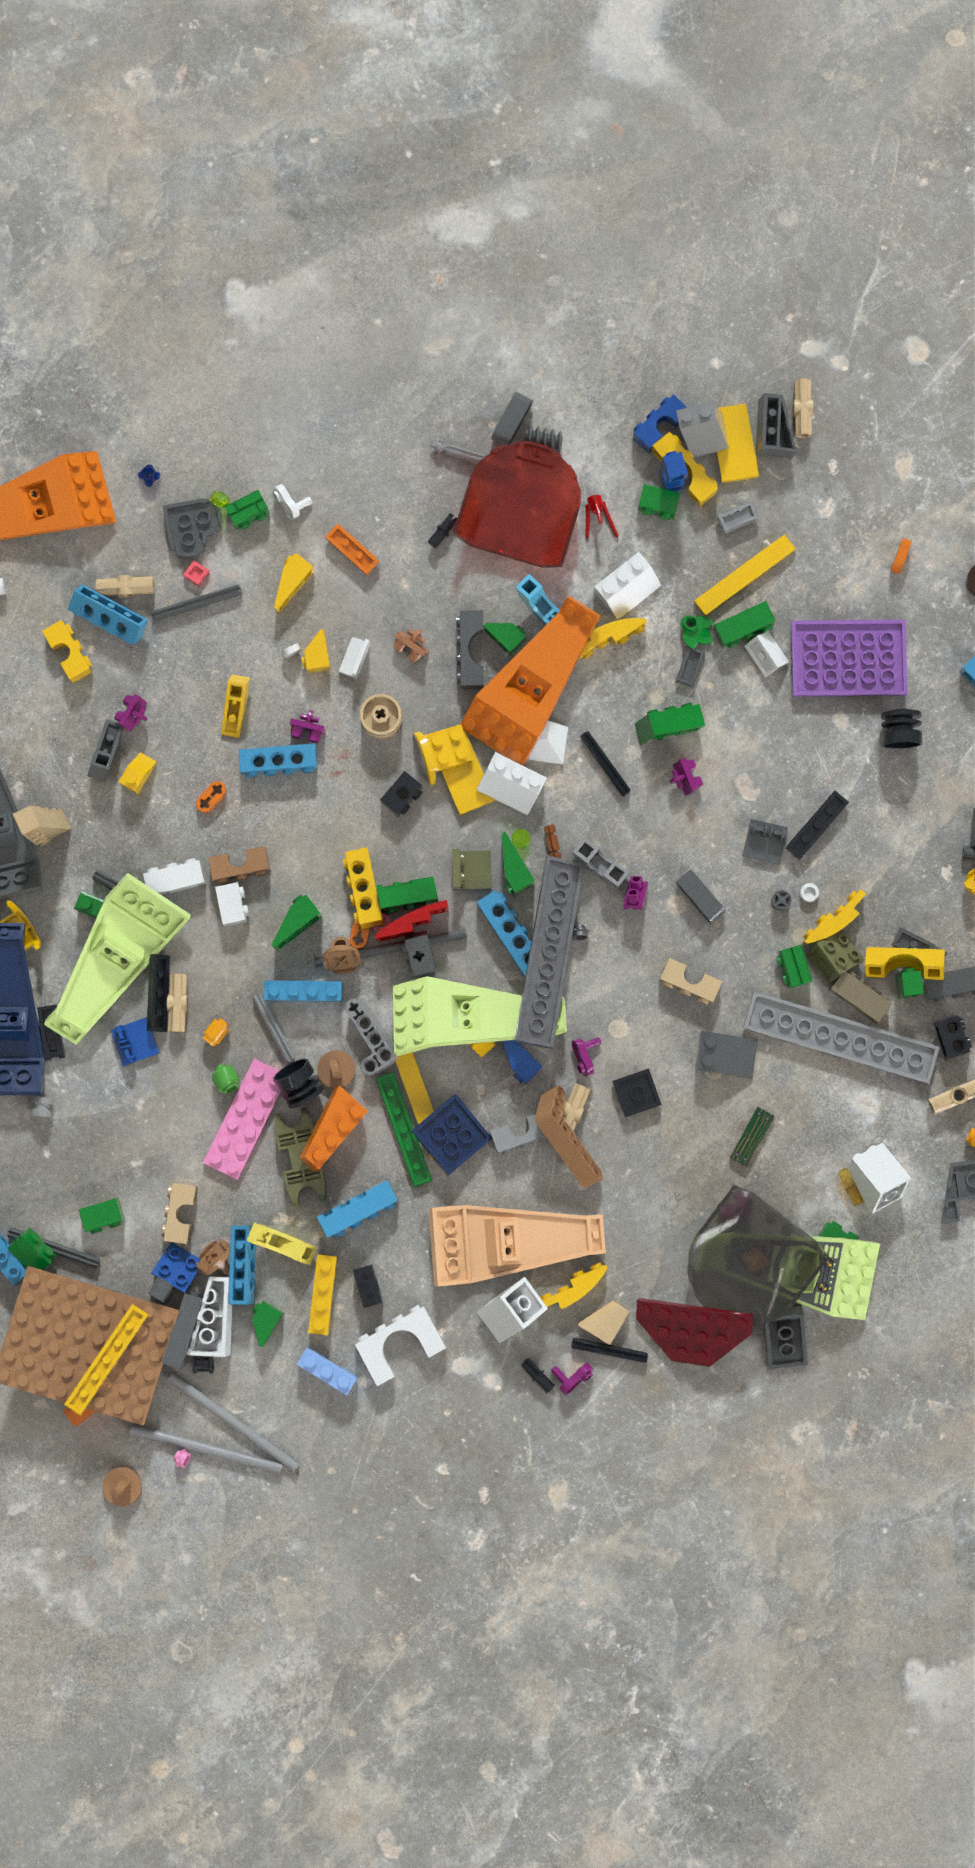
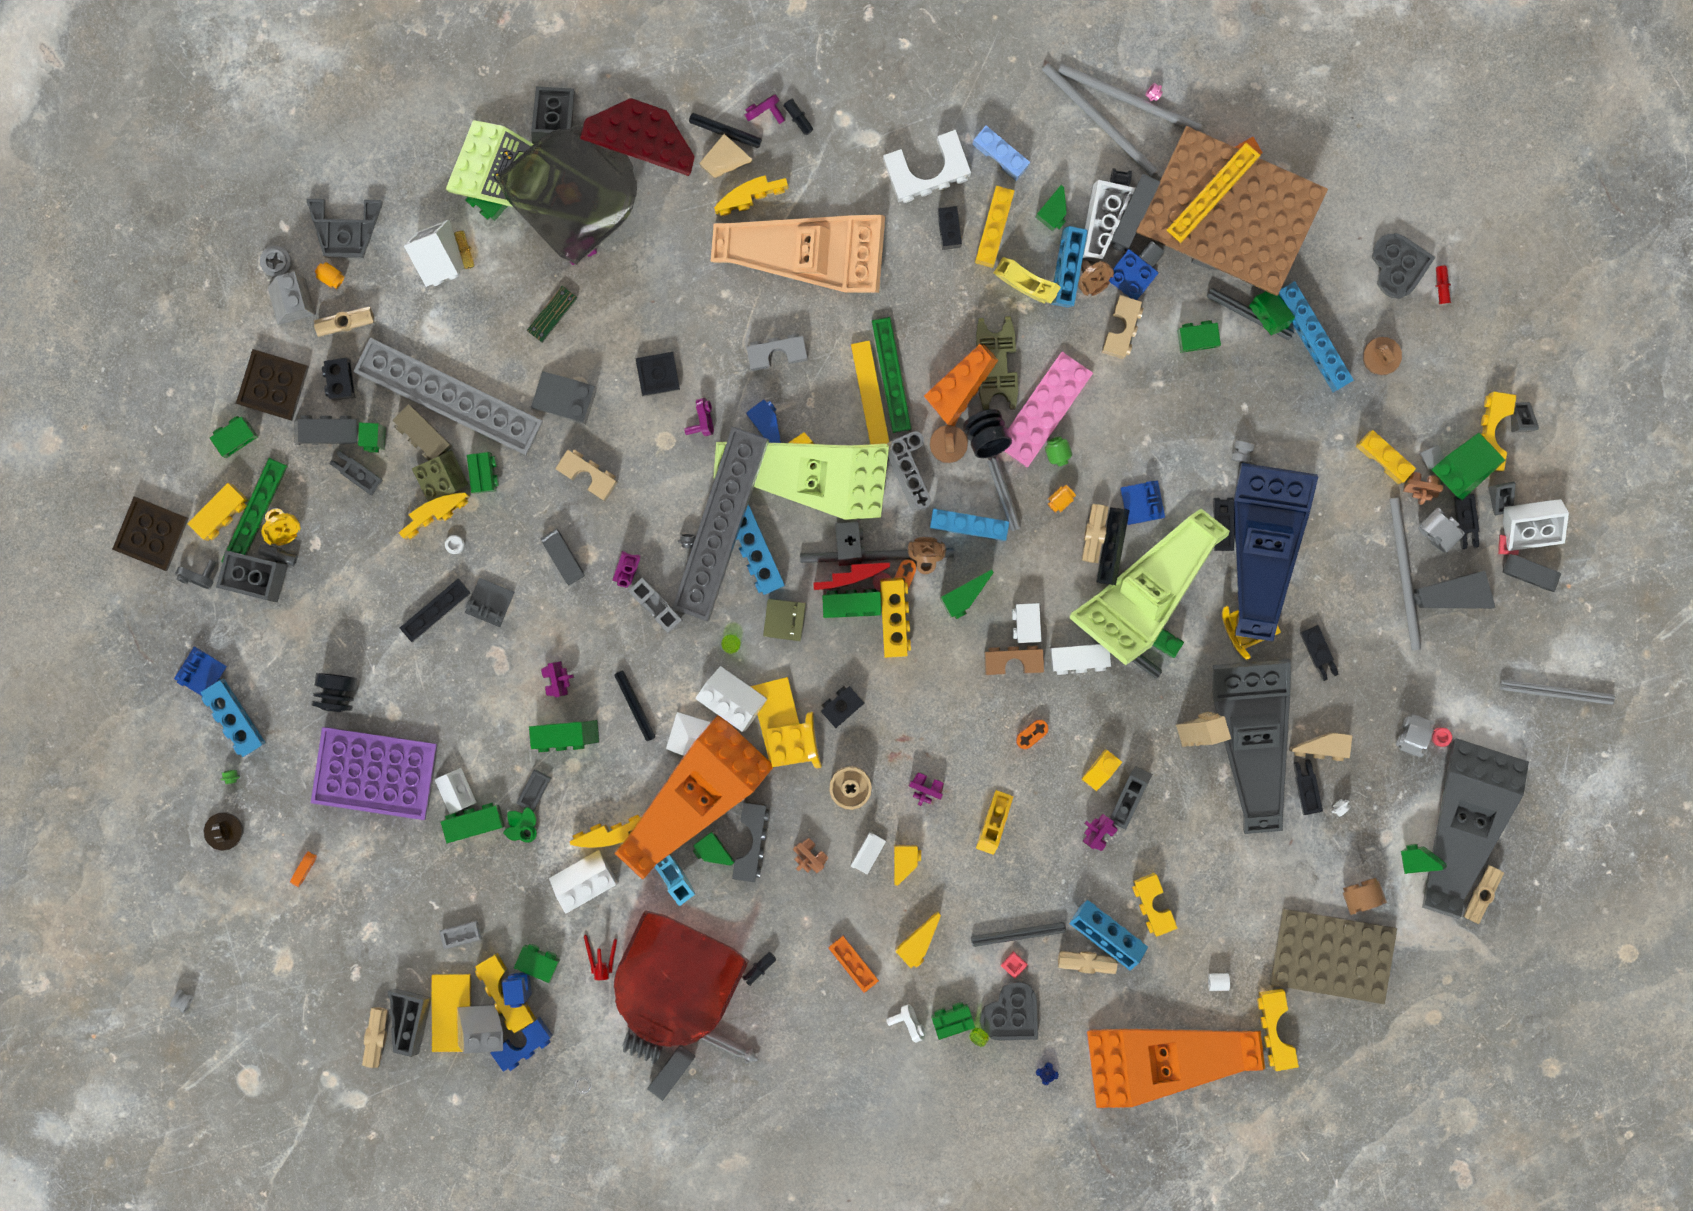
camera: 170 degrees left, 5 degrees up
(122, 1486) = (1215, 75): medium nougat tile -> none
(248, 757) = (989, 768): dark azure brick -> none
(292, 650) = (930, 869): white tile -> none
(357, 1209) = (948, 303): dark azure wedge -> none
(451, 1134) = (845, 361): dark blue plate -> none
(512, 1310) = (812, 181): white slope -> none
(515, 871) = (741, 609): green slope -> none
(552, 841) = (700, 635): dark orange axle -> none
(563, 1138) = (737, 340): medium nougat beam -> none
(574, 1107) = (724, 364): tan piece -> none
(744, 575) = (463, 875): yellow tile -> none
(783, 898) = (480, 542): dark grey wheel -> none
(881, 961) = (350, 455): yellow arch -> none

